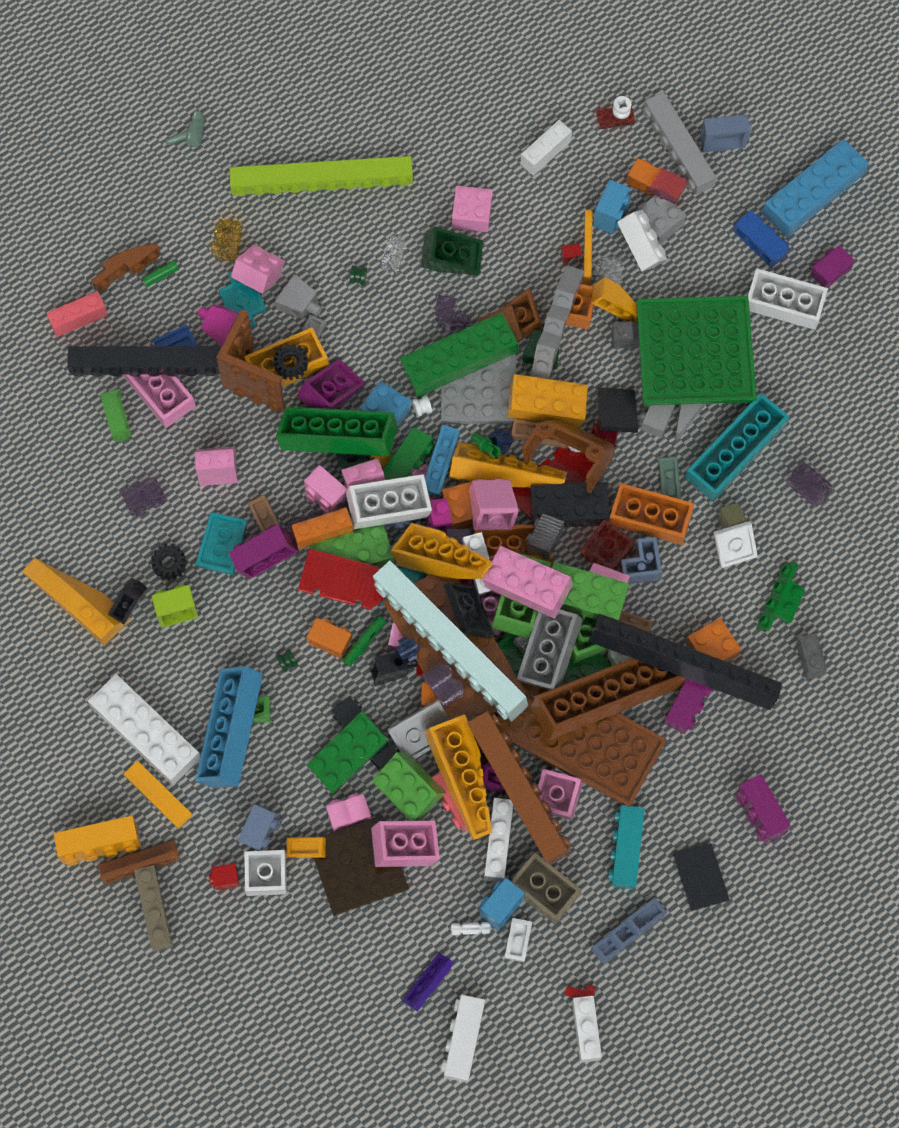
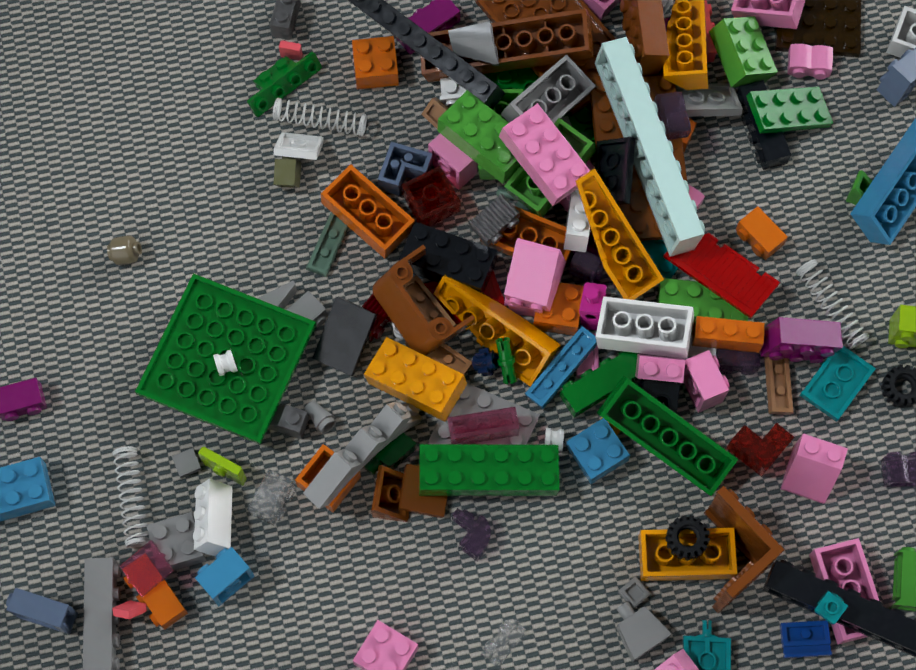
camera: 155 degrees left, 0 degrees up
(166, 341) = (830, 607): none -> teal bracket
(217, 321) = (745, 637): dark pink torso -> none
(262, 461) = (759, 452): none -> clear red brick
(281, 620) = (807, 267): none -> white piece
(286, 660) = (815, 229): dark green wheel -> none
(305, 847) = (865, 45): light orange tile -> none
(331, 387) = (647, 503): magenta slope -> none
(358, 275) = (557, 630): dark green wheel -> none
(359, 647) = (734, 212): green pin -> none
(390, 668) = (711, 173): black torso -> none
(407, 649) = (692, 168): dark blue gear -> none
(451, 252) = (436, 610): dark green slope -> none
(478, 382) = (483, 426): none -> clear pink brick
(564, 461) = (425, 300): none -> medium nougat plate
(569, 252) = (299, 545): red slope -> none
(587, 263) = (276, 546): light orange tile -> none
(605, 349) = (320, 417): none -> light grey cone
(614, 300) = (284, 458): light orange slope -> none
(634, 674) = (475, 43): none -> light grey slope
(655, 278) = (222, 466): none -> lime plate
(665, 159) = (129, 609): none -> coral tile
(684, 278) = (186, 463): none -> light grey tile
(692, 338) = (225, 363): none -> white wheel
(737, 447) = (241, 241): teal brick -> none
(738, 258) = (143, 540): none -> white piece
(761, 239) = (76, 467): blue brick -> none
(770, 570) = (277, 111): none -> white piece
(786, 299) = (92, 381): white brick -> none
(788, 627) = (291, 50): none -> coral tile
(810, 484) = (187, 173): clear purple brick -> none
(823, 406) = (124, 250): none -> dark tan head

